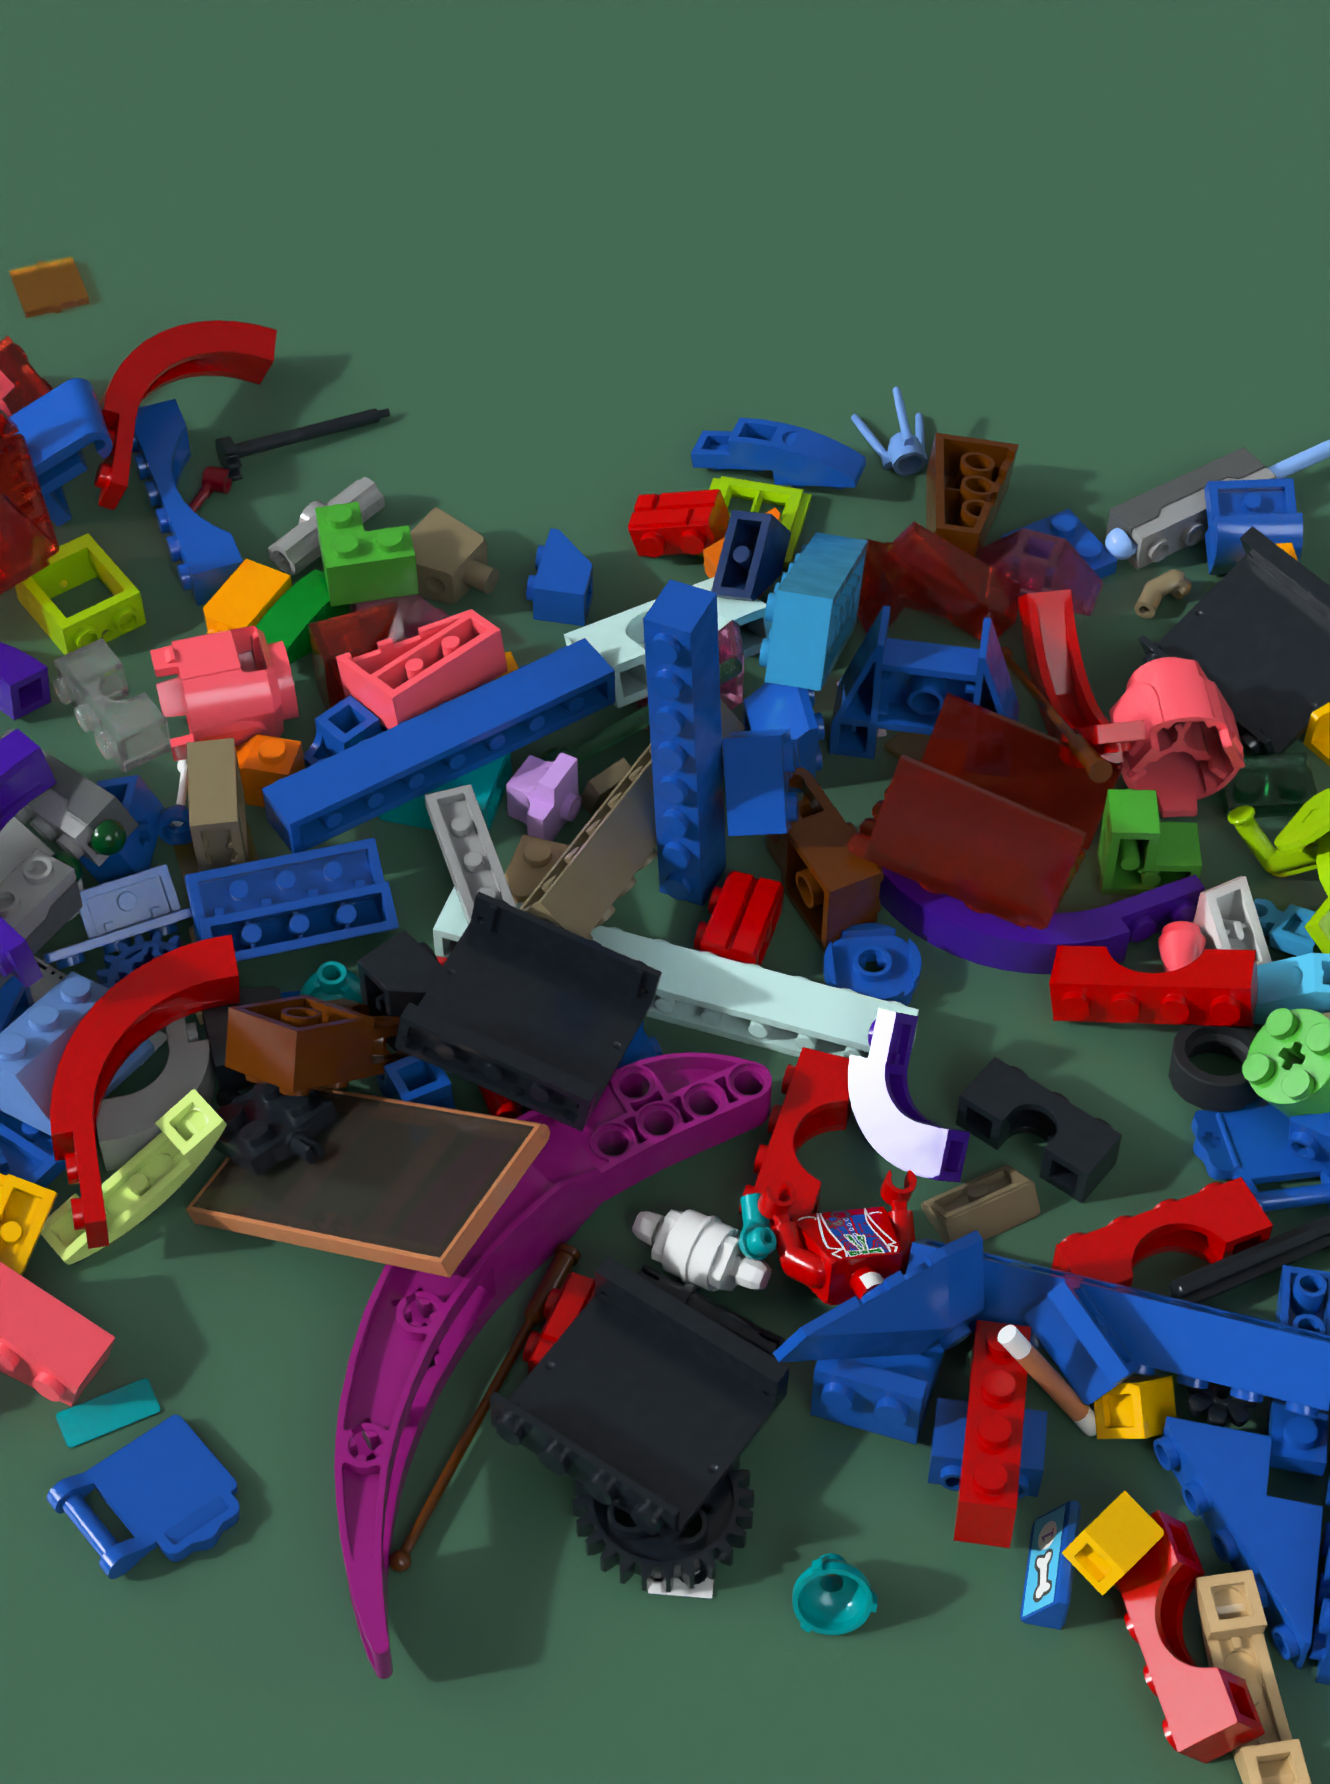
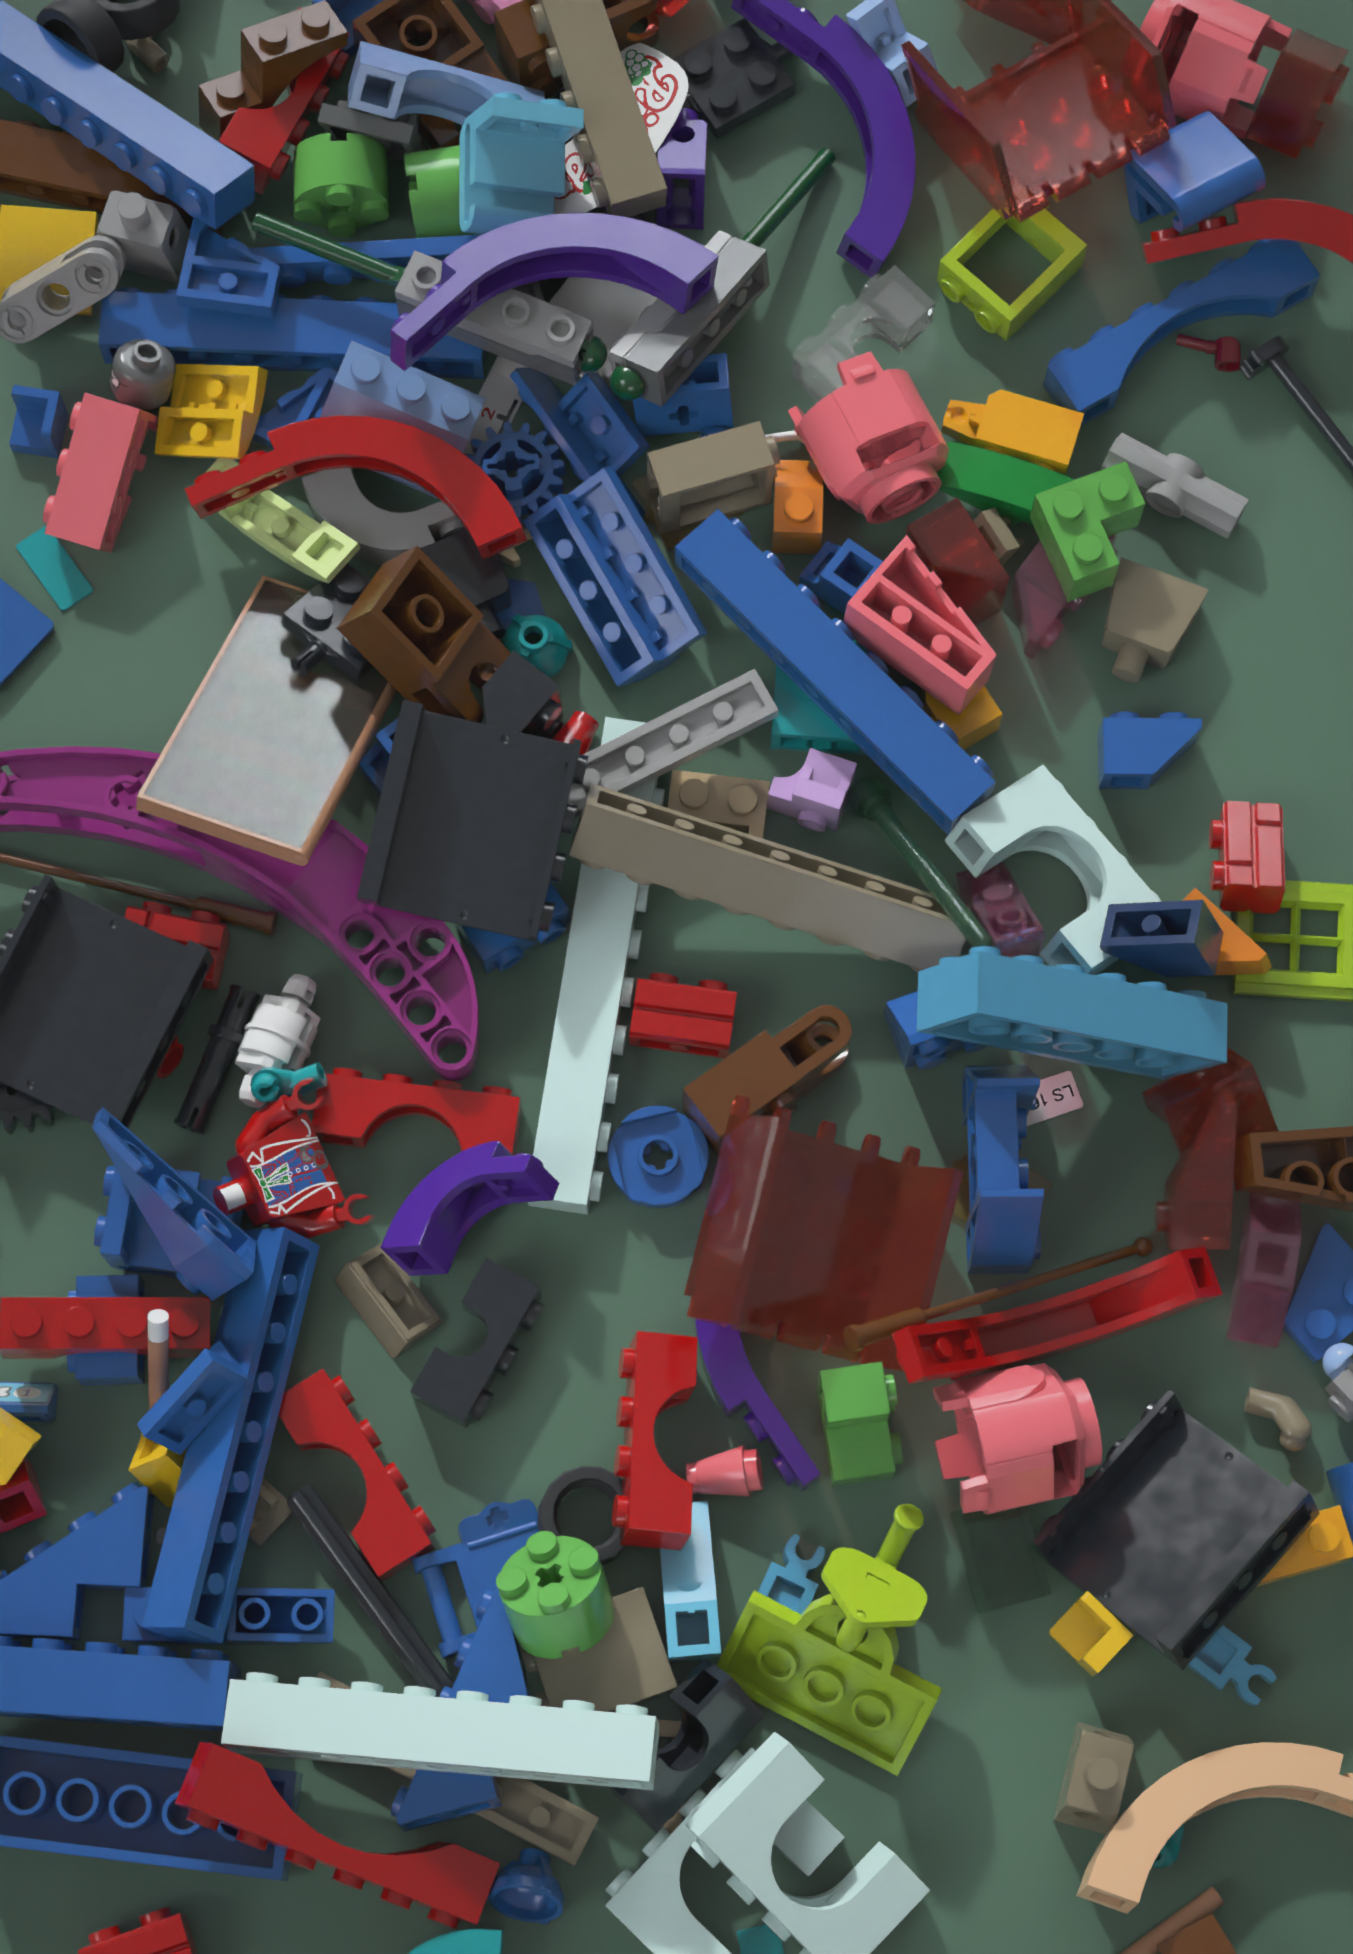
camera: 80 degrees right, 25 degrees up
(603, 784) = (845, 850): dark tan tile -> none
(686, 740) = (760, 893): blue brick -> none
(757, 781) = (790, 984): blue brick -> none
(1231, 920) = (761, 1525): white slope -> none

